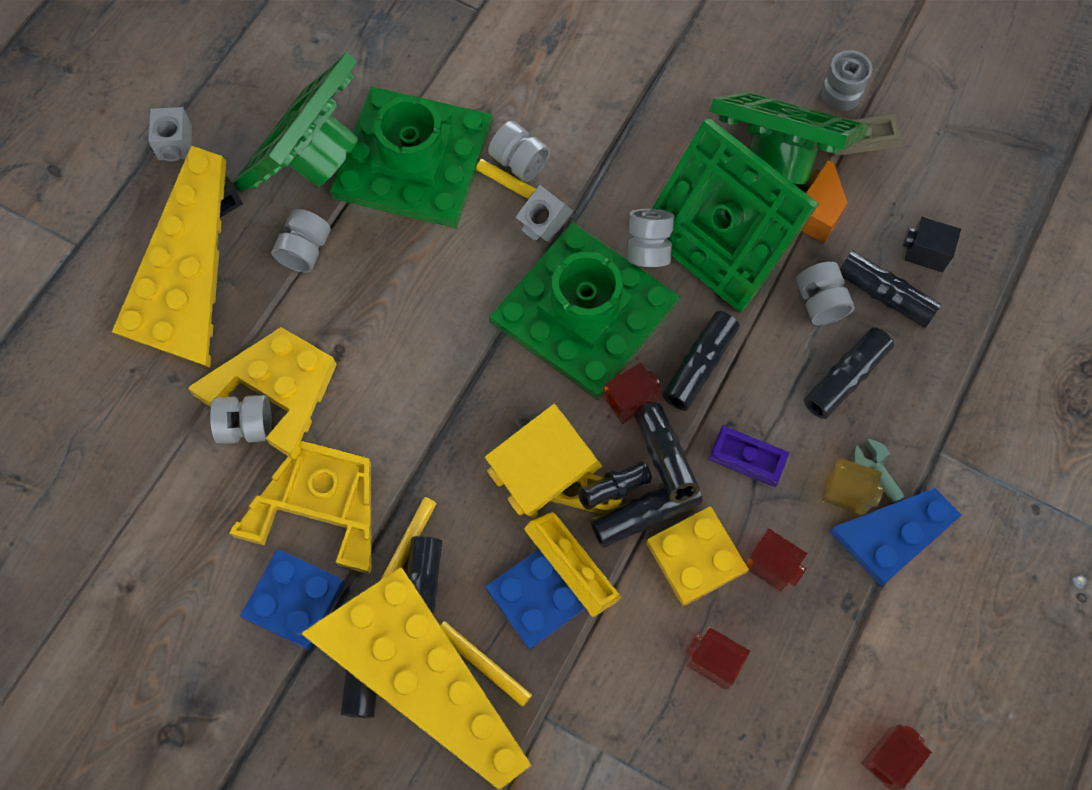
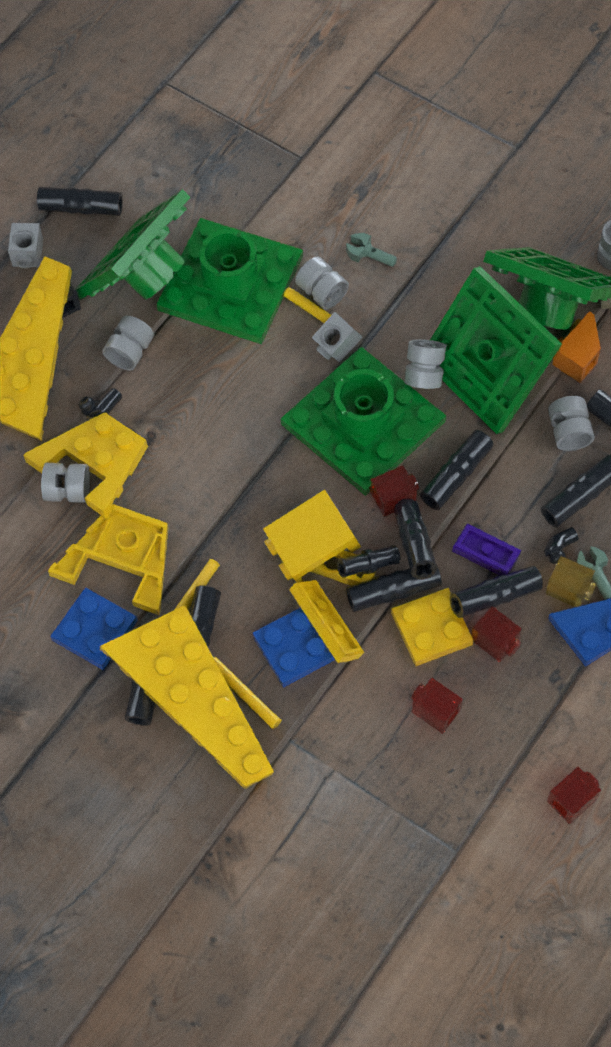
camera: 10 degrees right, 5 degrees down
(229, 77) = (79, 201): none -> black axle
(270, 322) = (94, 408): none -> black arm
(564, 109) = (367, 250): none -> sand green bar
(768, 508) = (496, 591): none -> black axle
(828, 440) = (558, 542): none -> black arm

